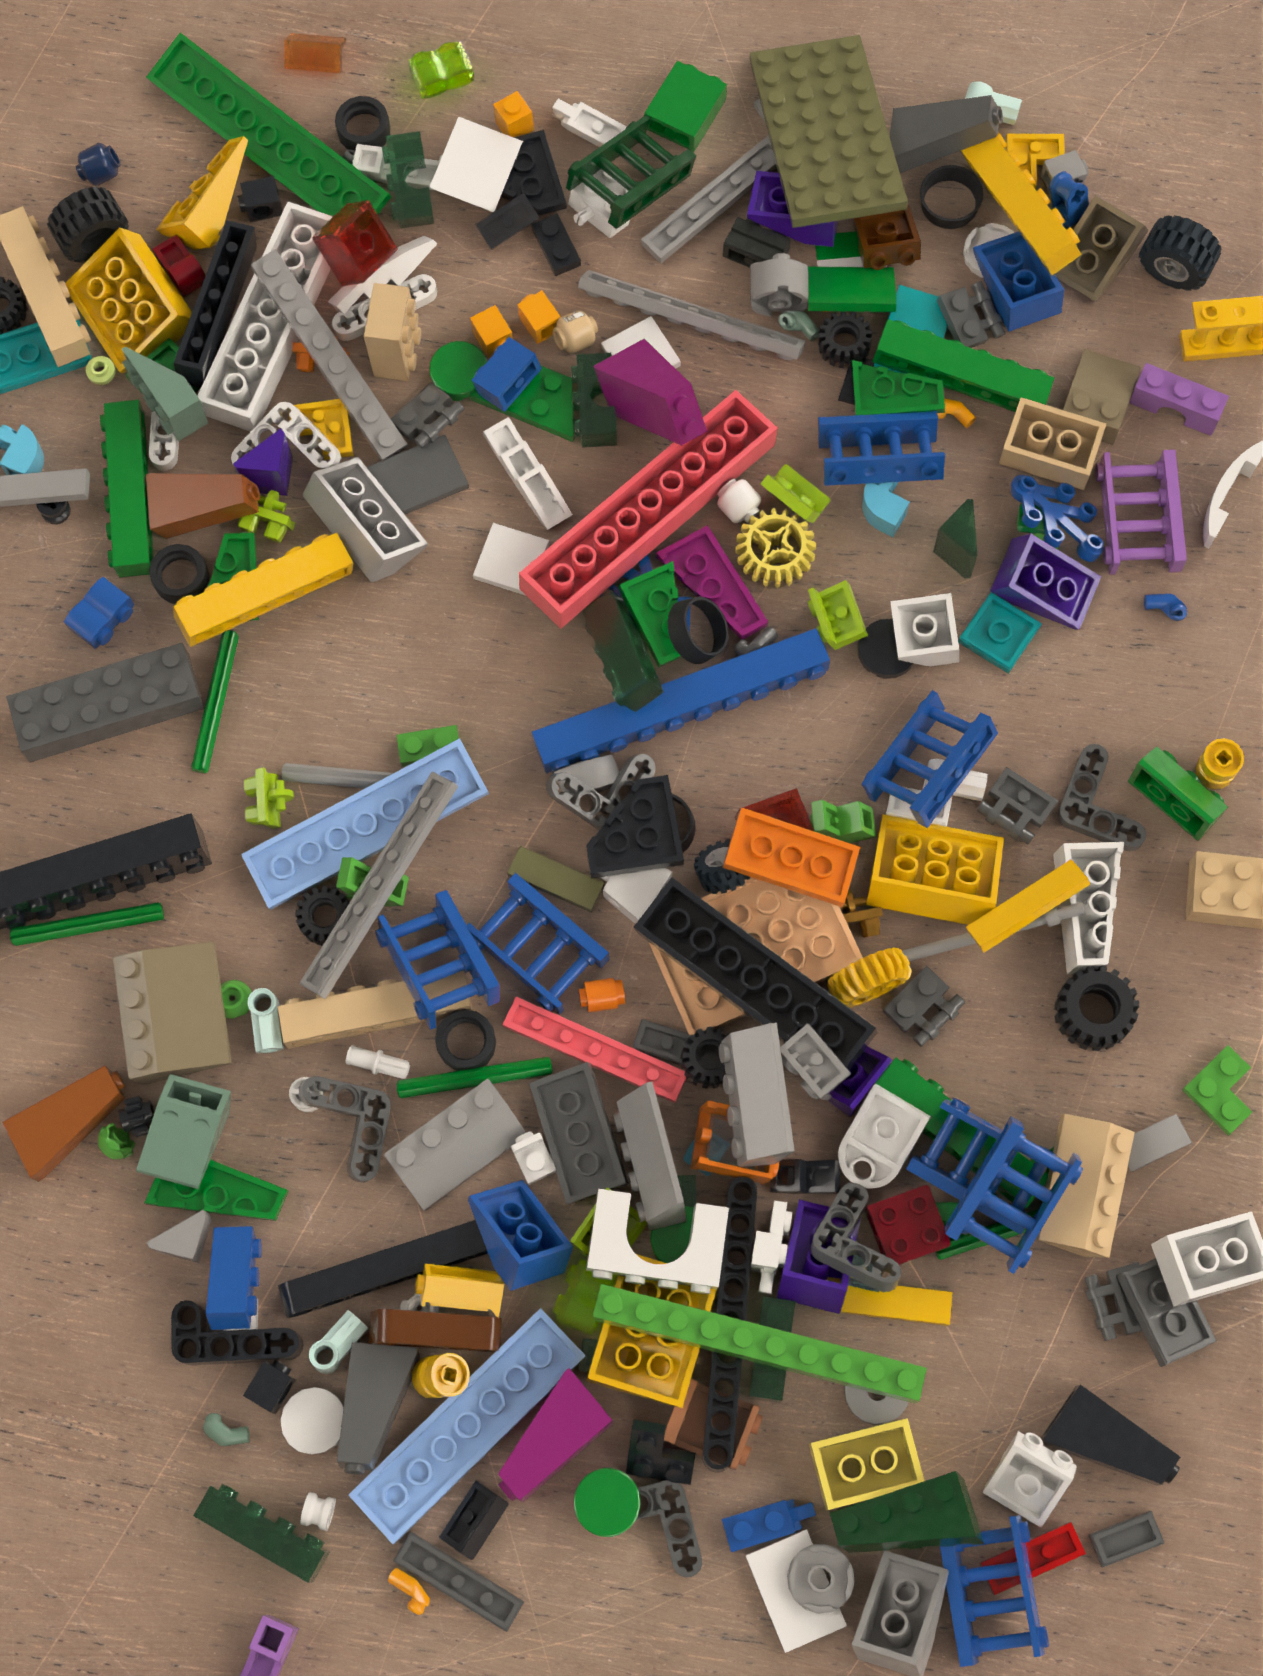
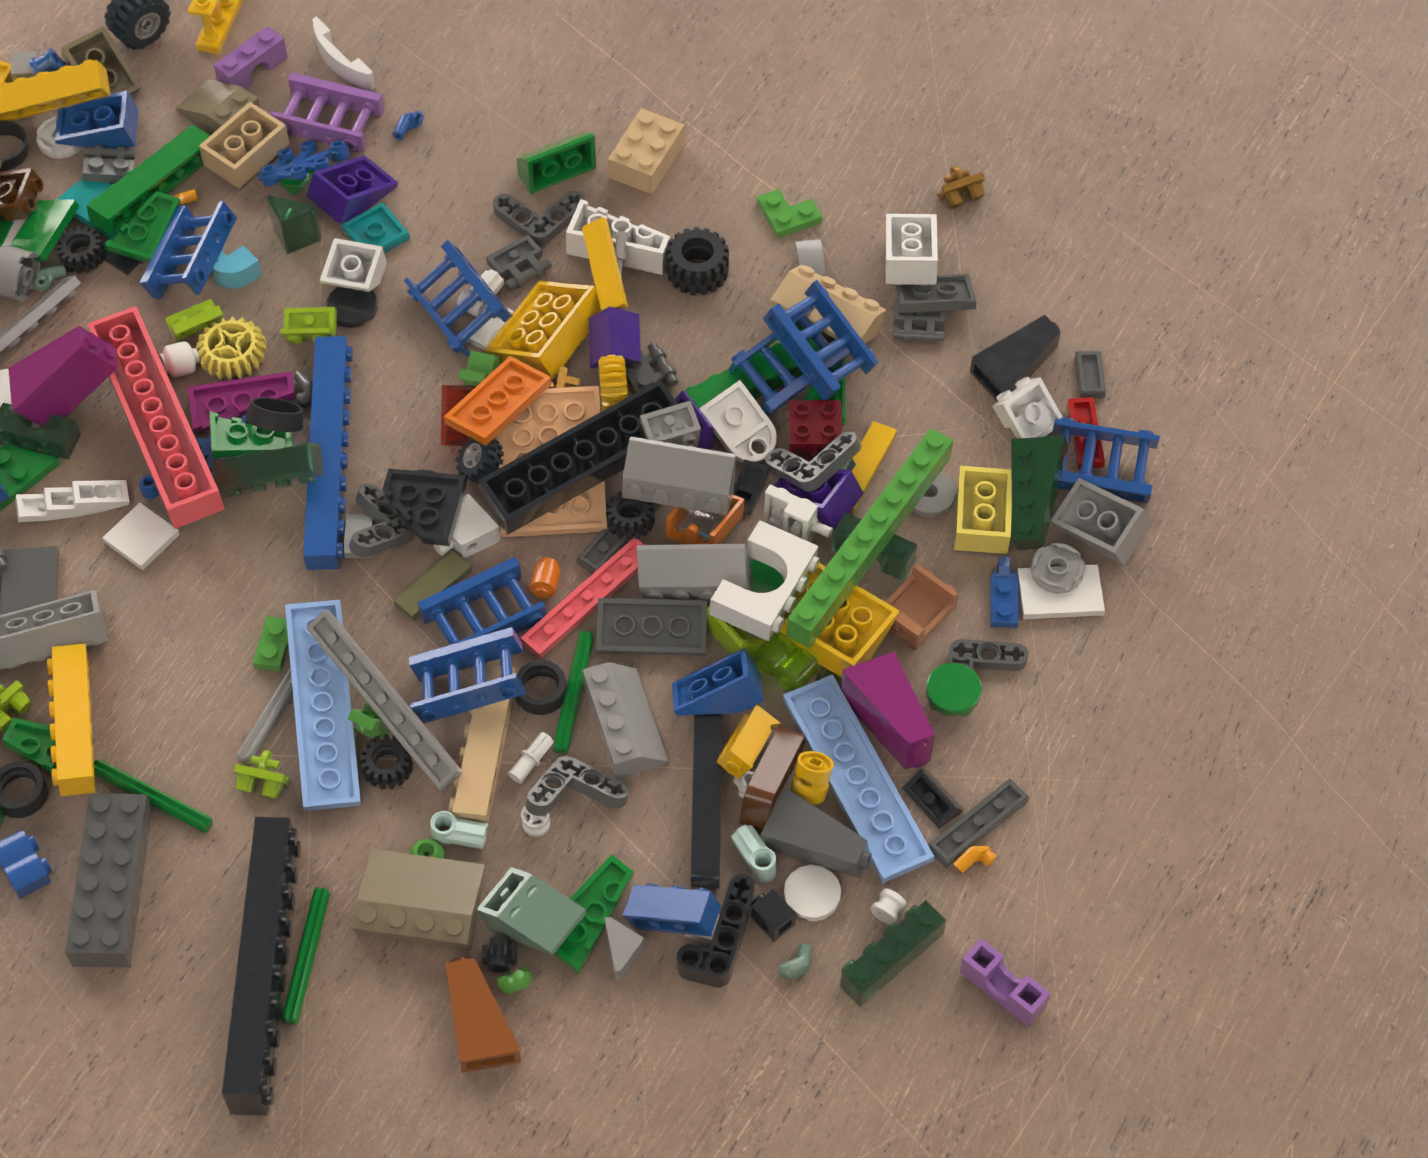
camera: 75 degrees left, 15 degrees down
(533, 1157) = (657, 668): white bracket -> none
(652, 1460) = (927, 649): black plate -> none
(730, 1306) = (881, 575): black beam -> none
(940, 955) = (616, 334): none -> dark purple slope
(1219, 763) = (545, 126): yellow wheel -> none

